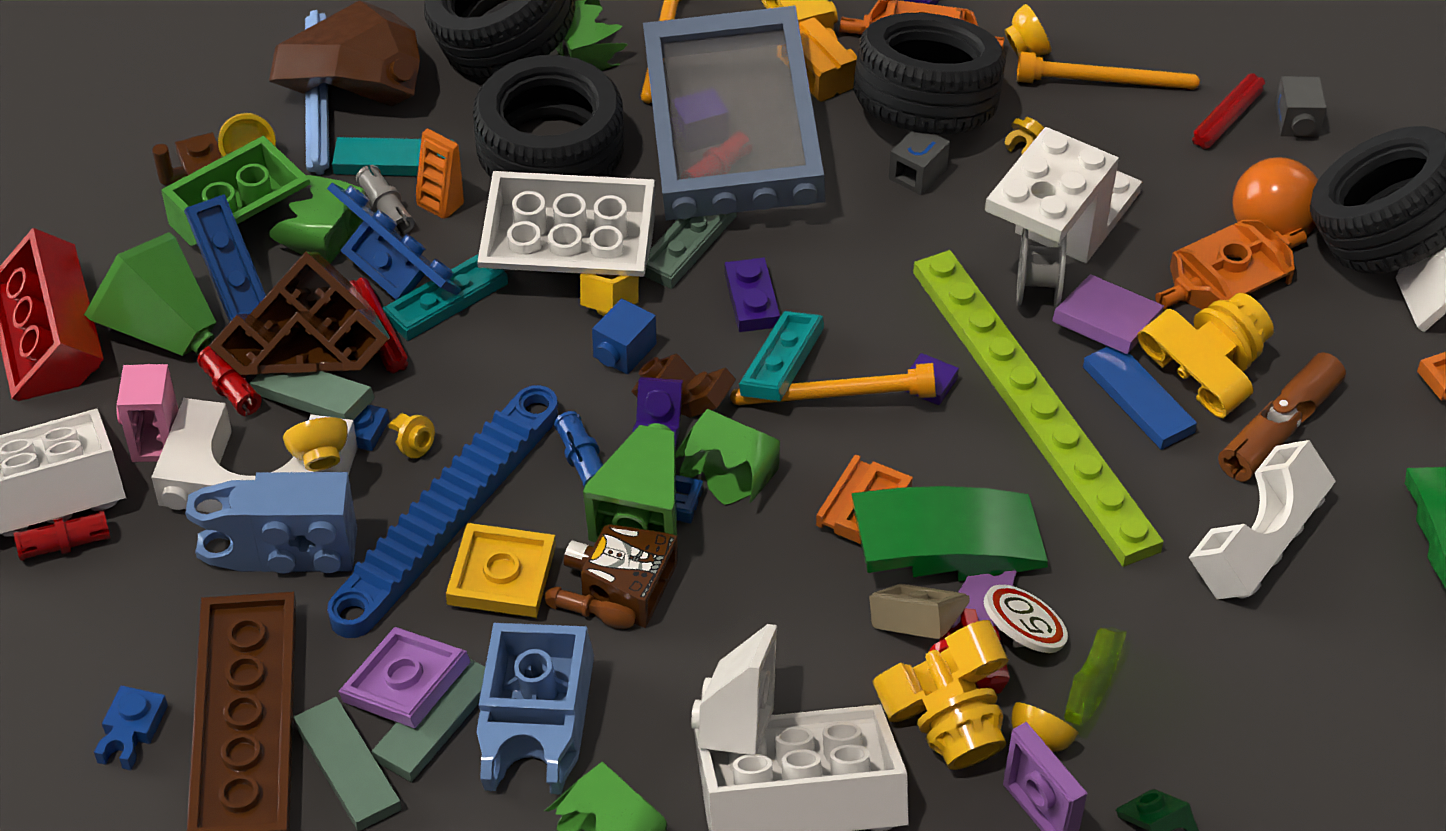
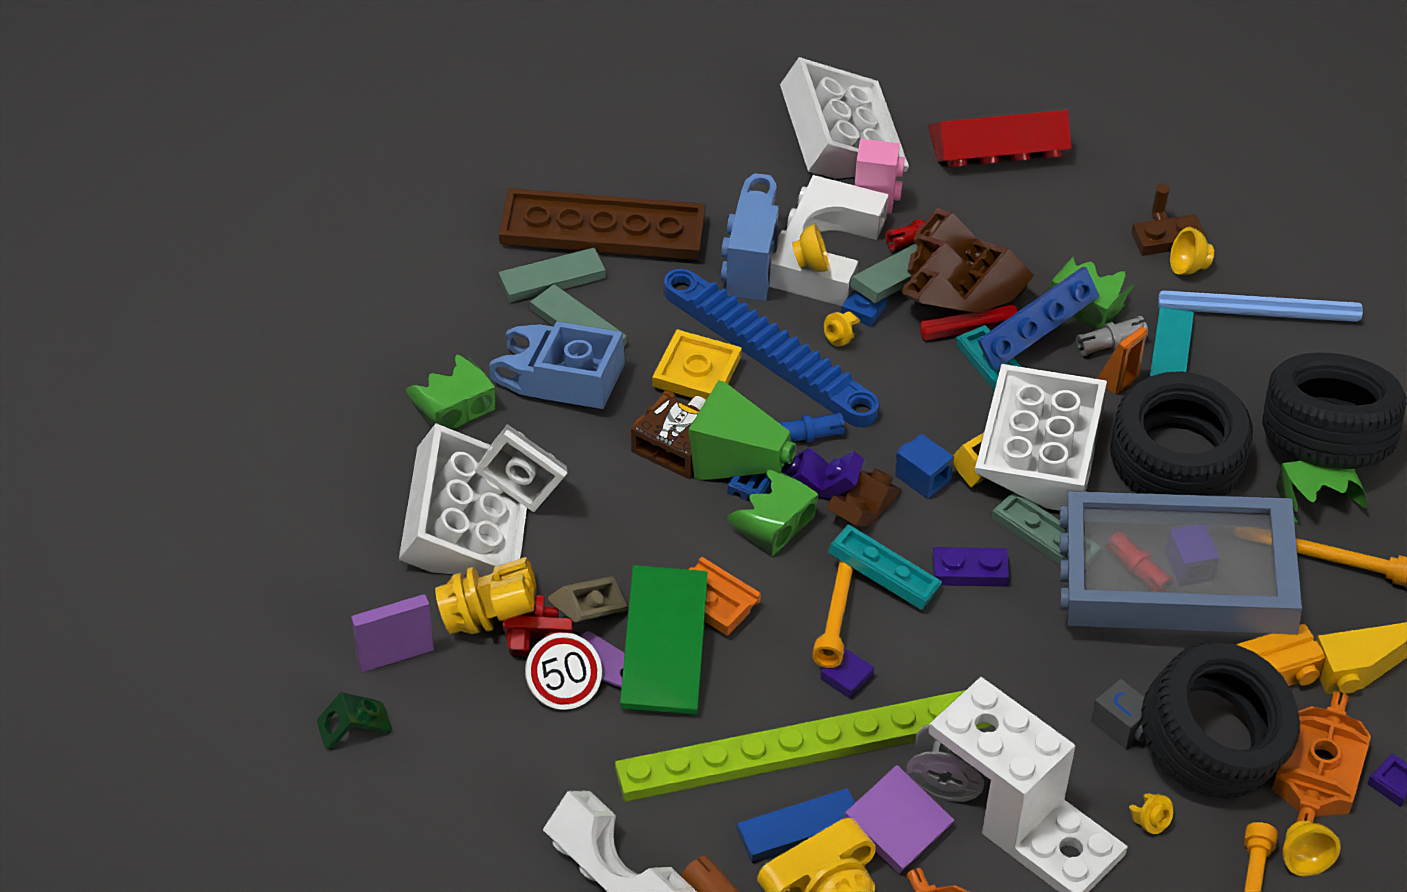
camera: 100 degrees right, 0 degrees up
(61, 535) = (784, 142): red pin -> none
(130, 720) = (615, 175): blue plate -> none
(154, 298) = (997, 182): bright green slope -> none
(225, 256) = (1036, 219): blue tile -> none
(249, 178) = (1114, 233): bright green slope -> none
(354, 50) = (1287, 315): reddish brown brick -> none
(404, 677) = (611, 304): medium lavender tile -> none
(1052, 730) = (458, 658): yellow piece -> none
(1094, 677) = (495, 706): clear neon green tile -> none

